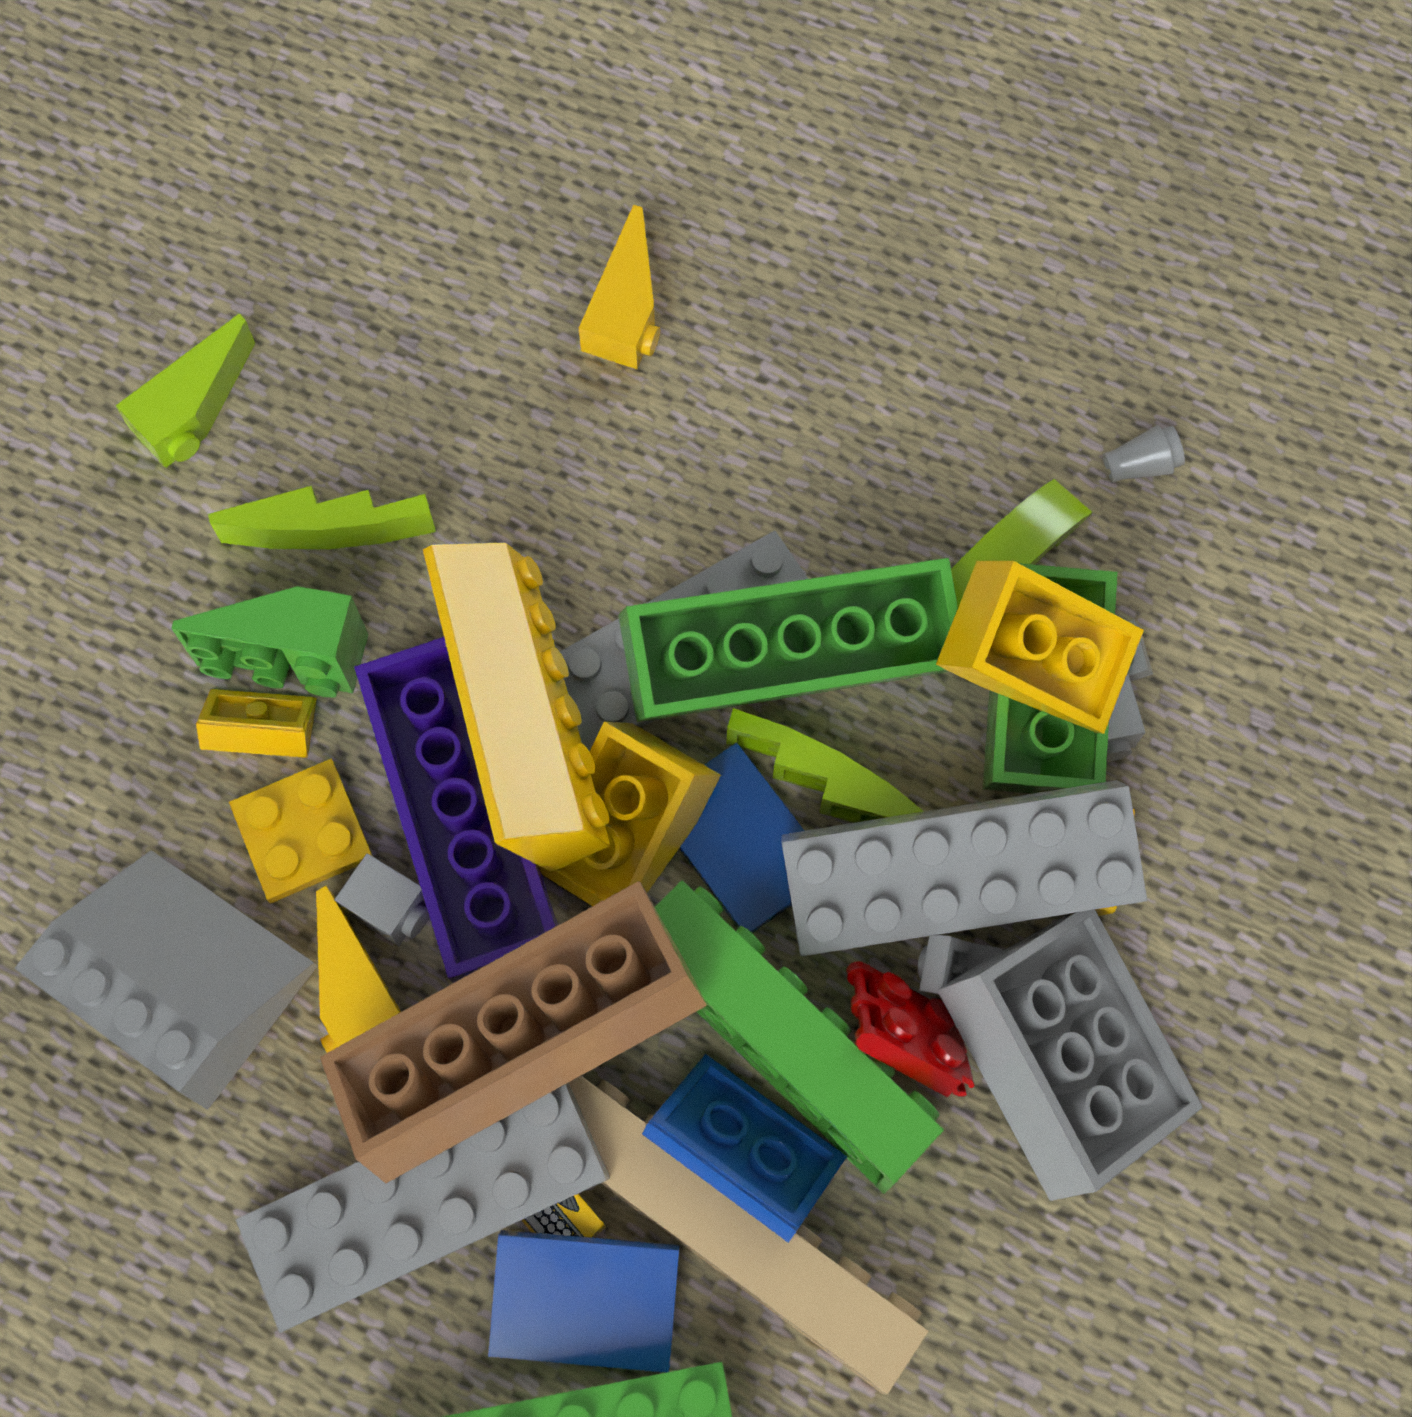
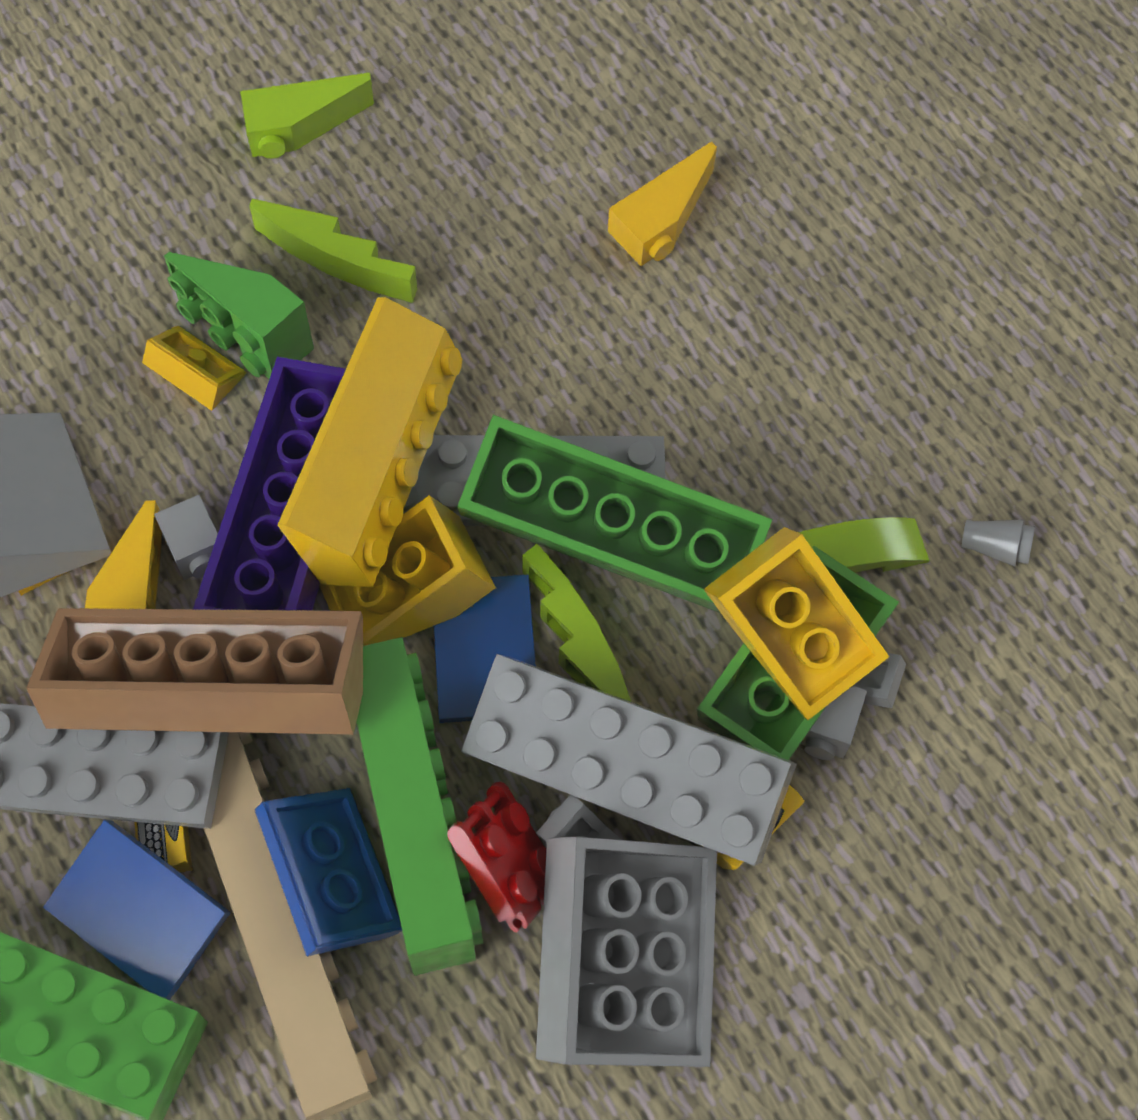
camera: 30 degrees right, 5 degrees down
(300, 830) = (170, 457): yellow plate -> none

